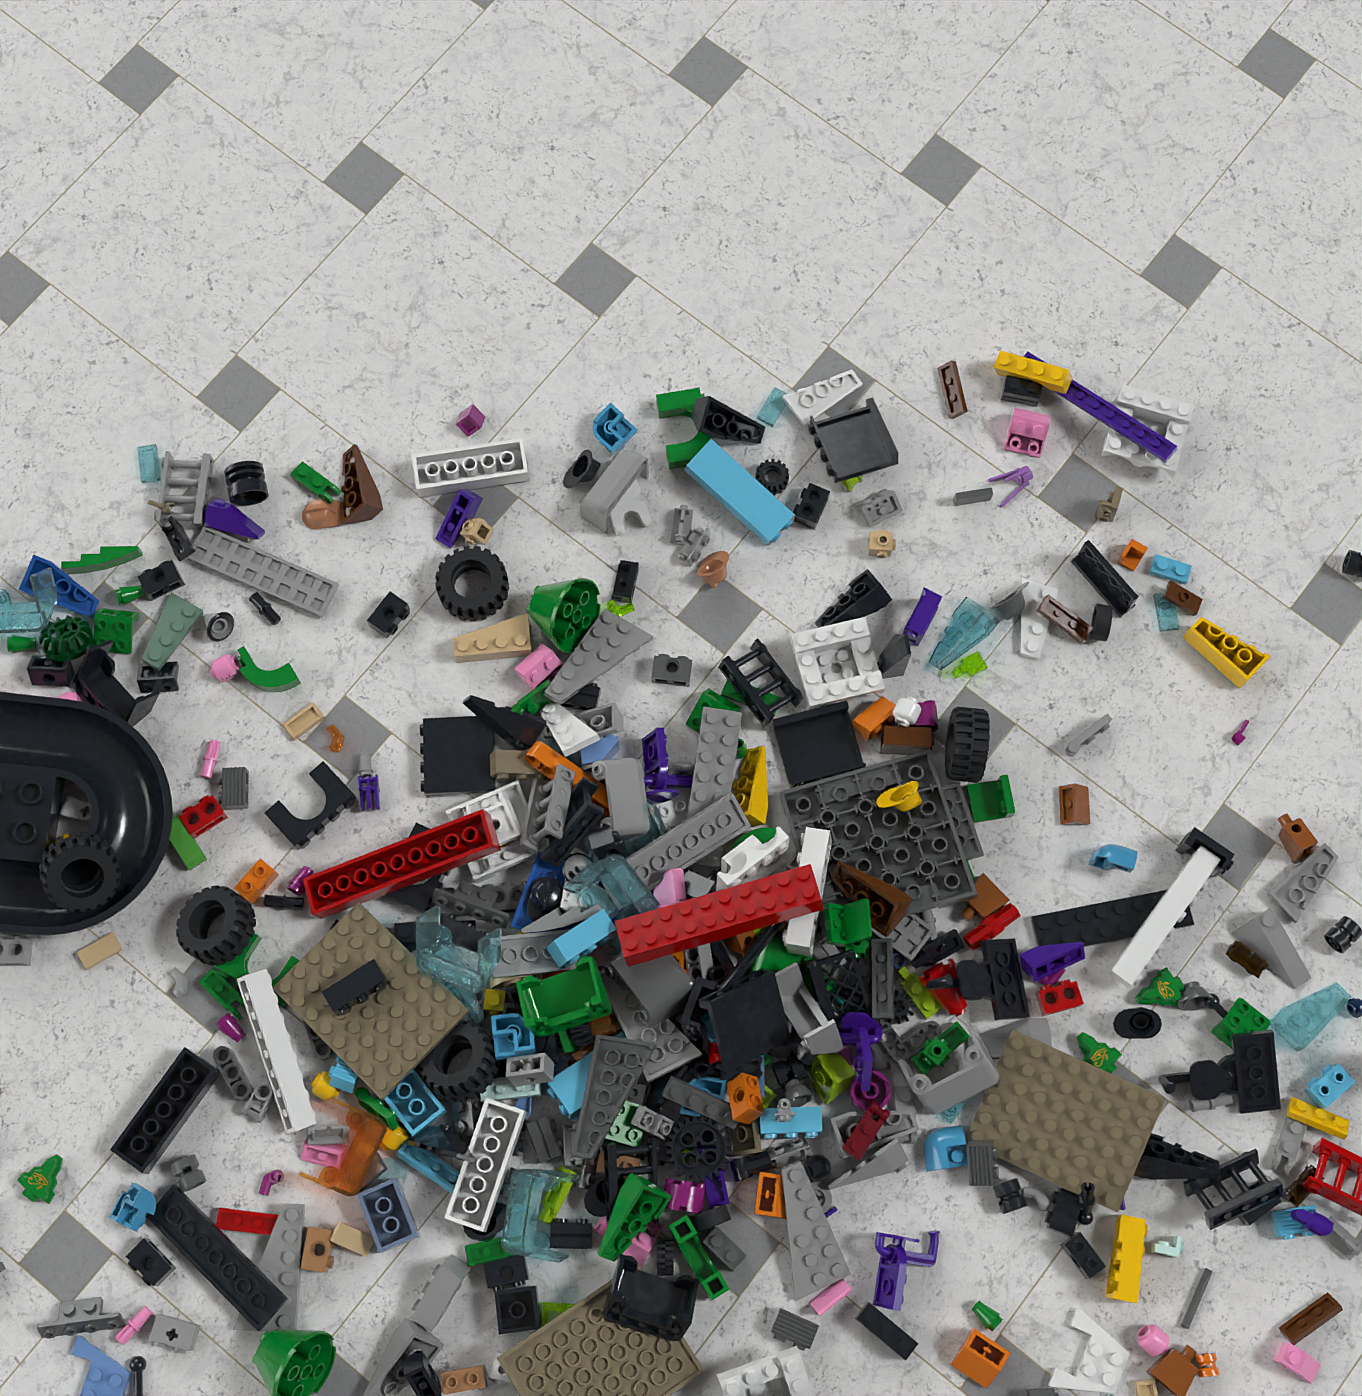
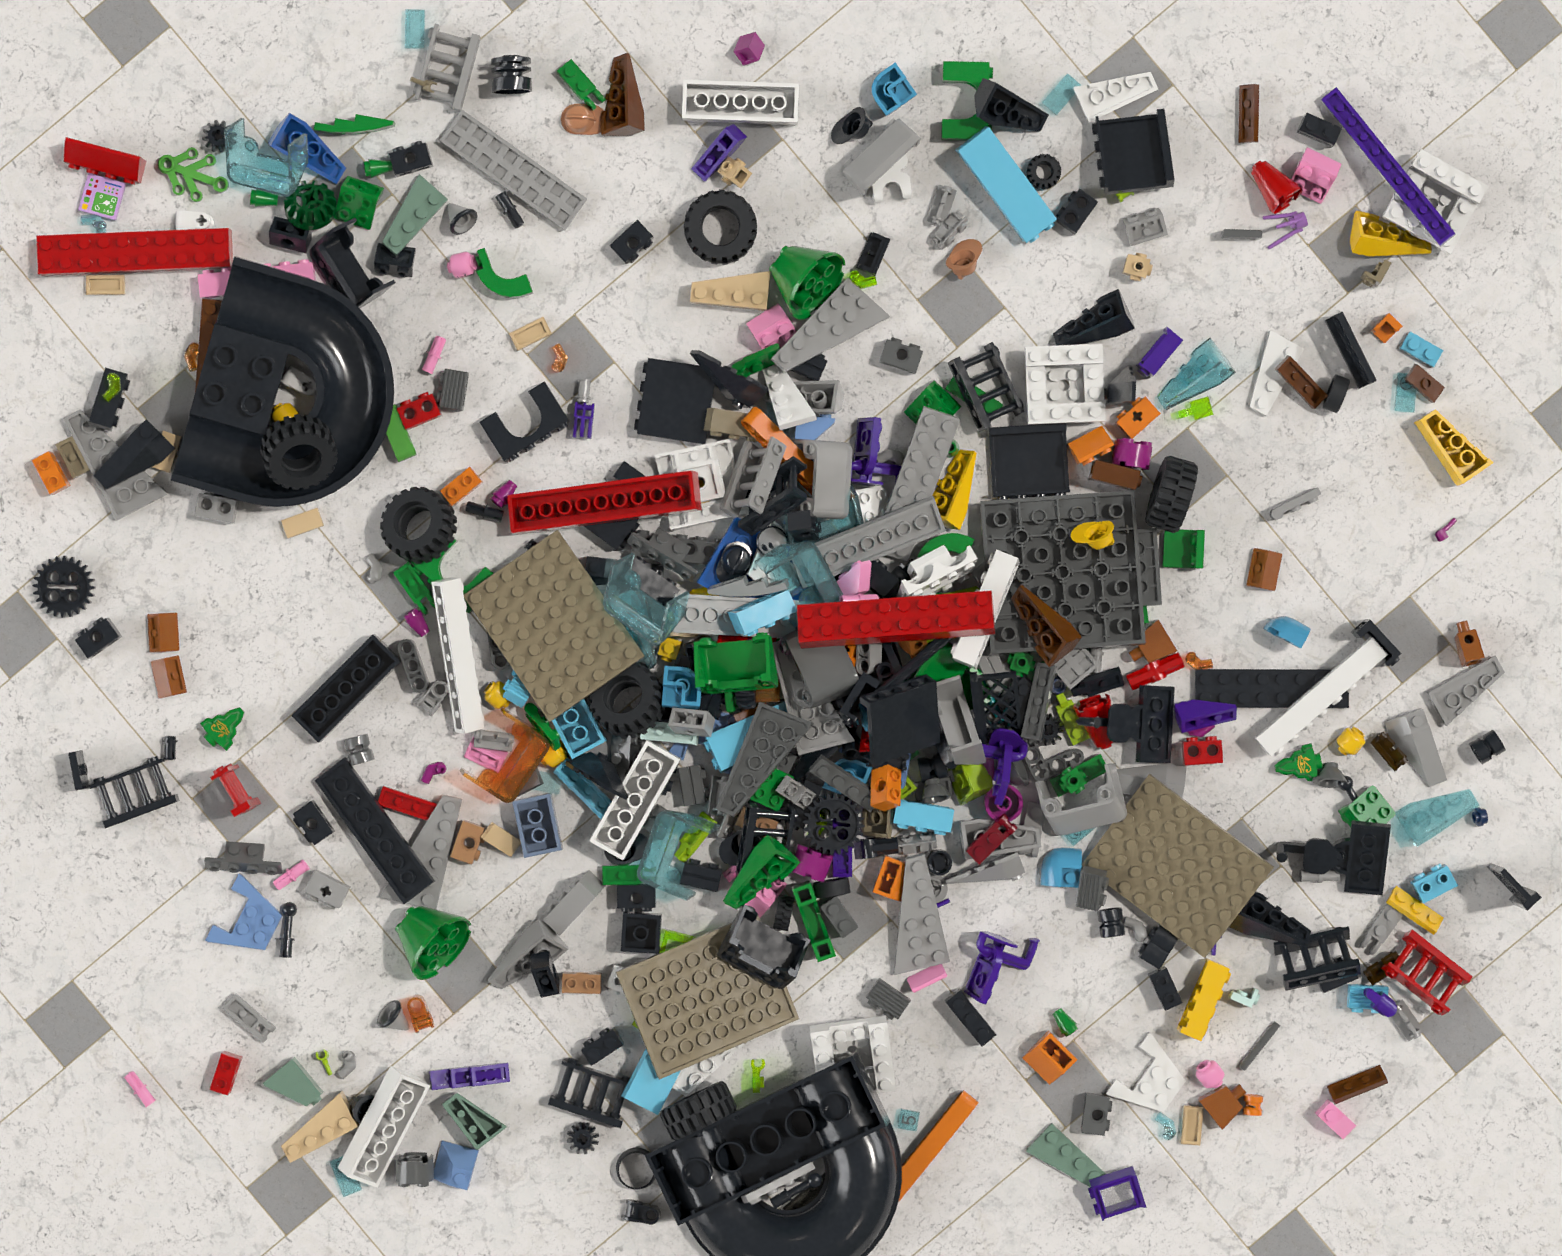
camera: 15 degrees right, 15 degrees up
(64, 1250) = (236, 791): none -> red fence
(133, 1206) = (305, 770): dark azure brick -> none
(178, 539) = (434, 120): black hinge -> none
(230, 519) = (489, 109): dark purple slope -> none
(356, 987) = (543, 614): black brick -> none
(784, 1111) = (918, 809): light grey hinge -> none
(847, 922) = (1015, 647): green bracket -> none
(906, 711) = (1120, 451): white head -> none
(921, 674) = (1148, 414): none -> orange brick
(994, 447) = (1275, 186): none -> red cone
(1012, 604) = (1254, 354): dark grey piece -> none
(1031, 911) = (1196, 663): none -> clear orange arm
(1048, 375) = (1333, 115): yellow arch -> none
(1087, 1199) = (1179, 941): black pin -> none
(1098, 1053) = (1225, 812): green rock -> none
(1101, 477) = (1377, 238): none -> yellow wedge
(1137, 1023) = (1269, 790): black piece -> none
(1205, 957) = (1350, 741): none -> yellow head

